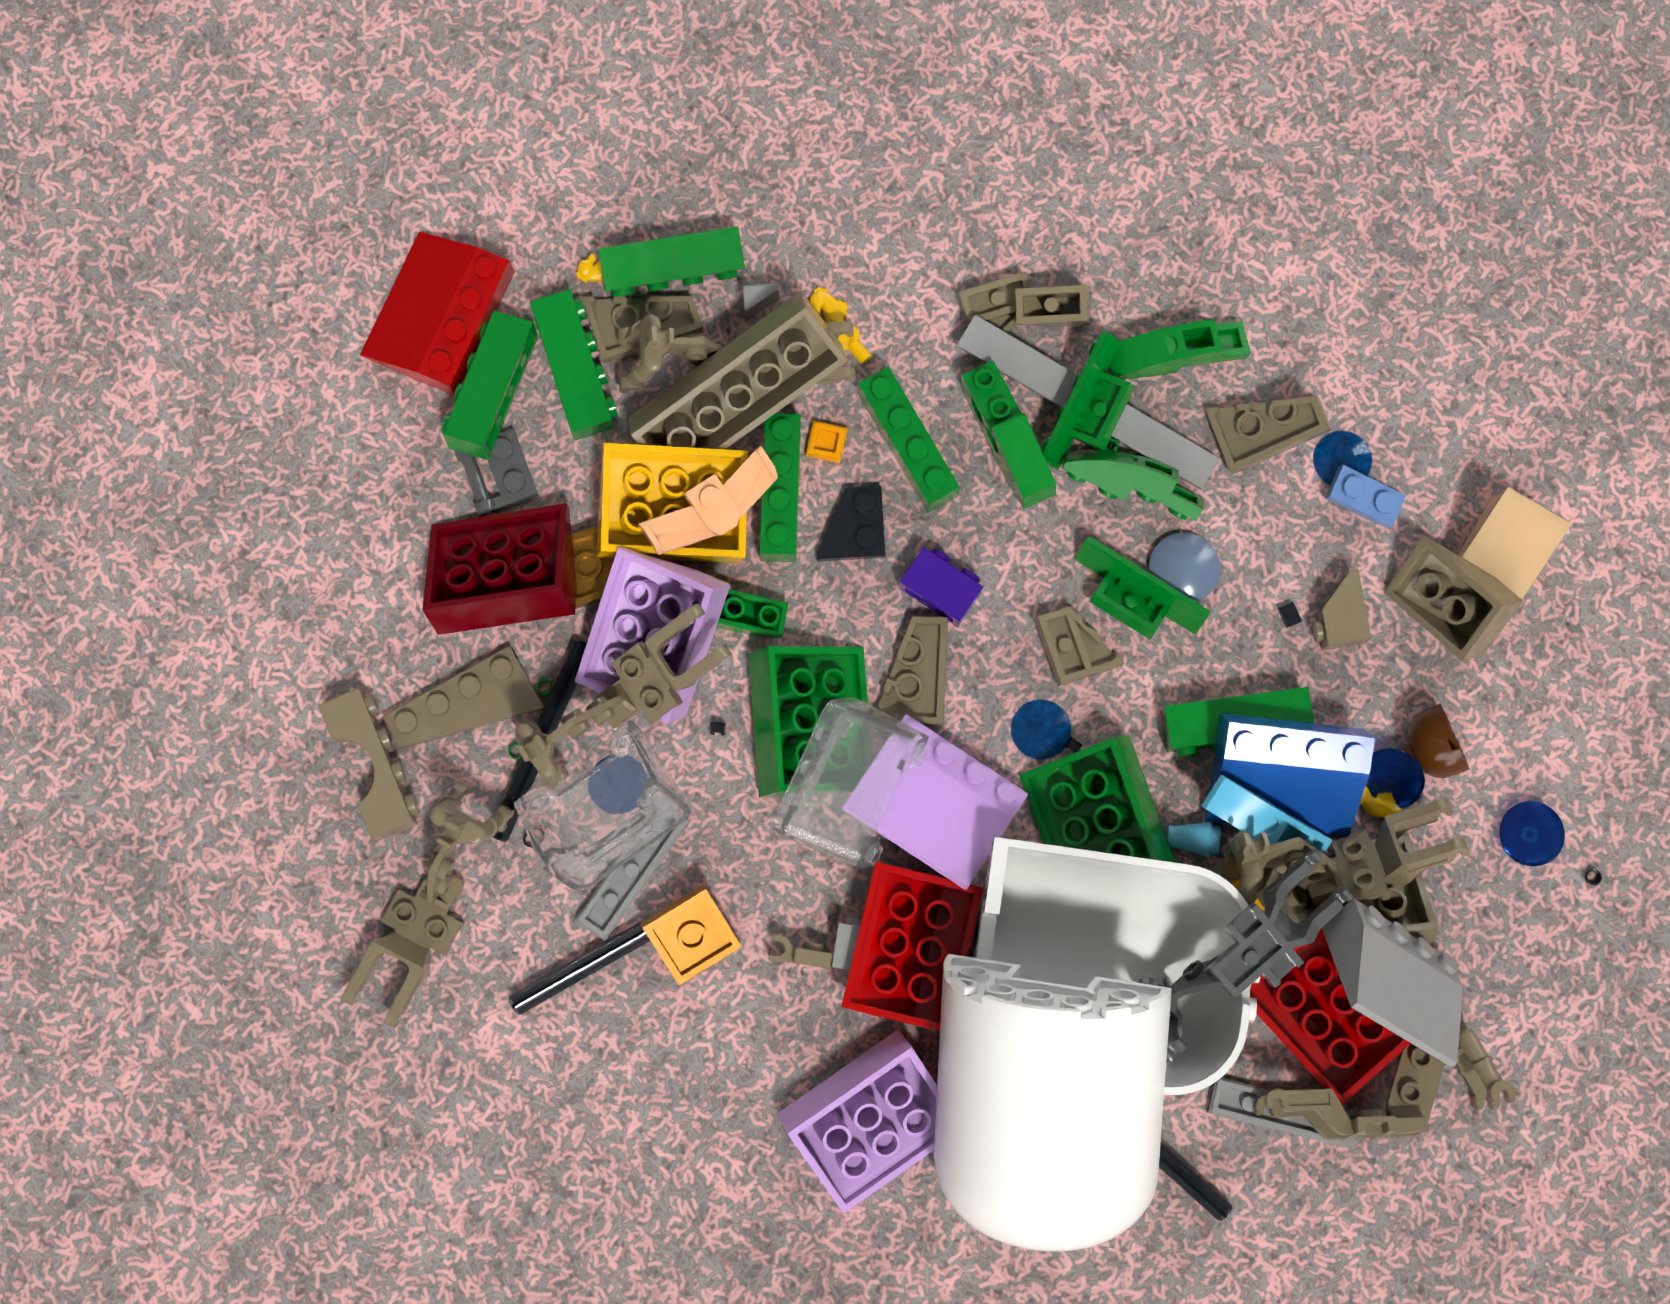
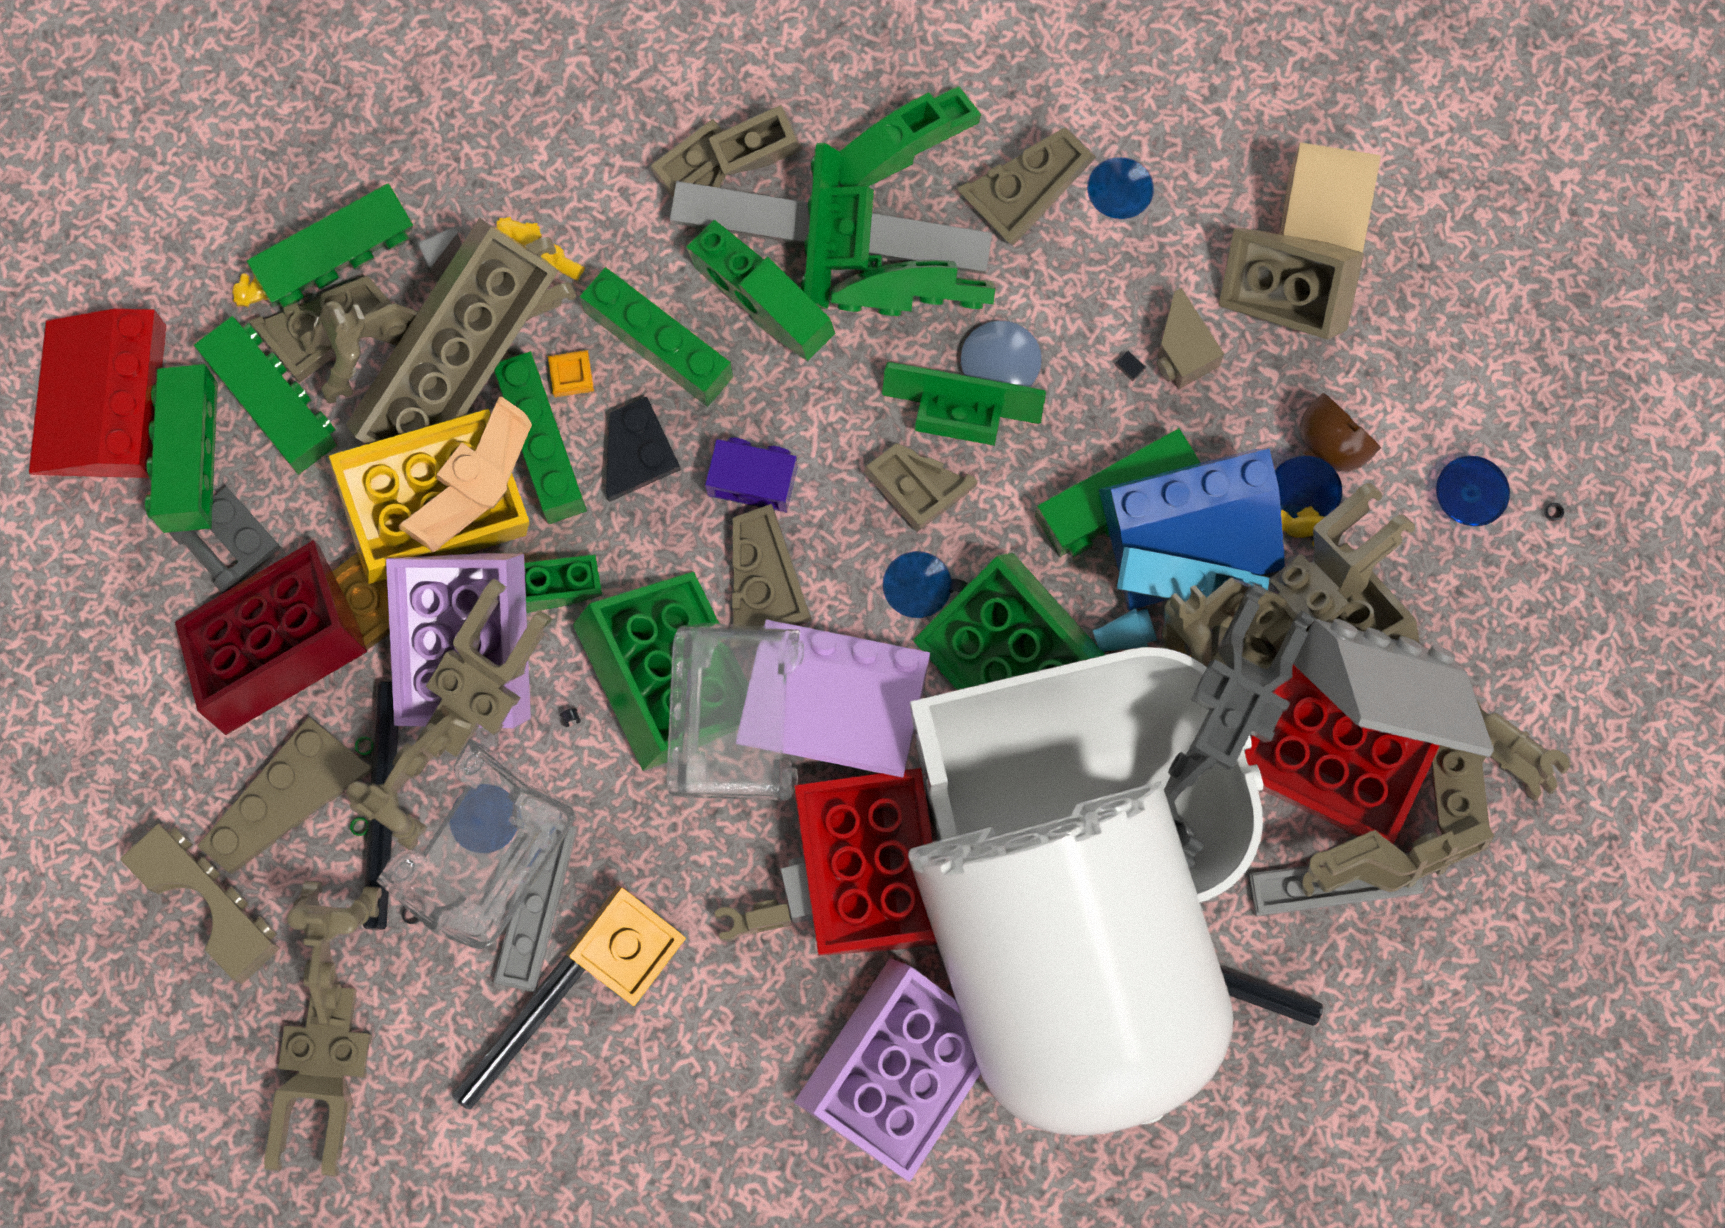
camera: 20 degrees left, 5 degrees down
(1365, 497) = (1159, 215): medium blue plate -> none

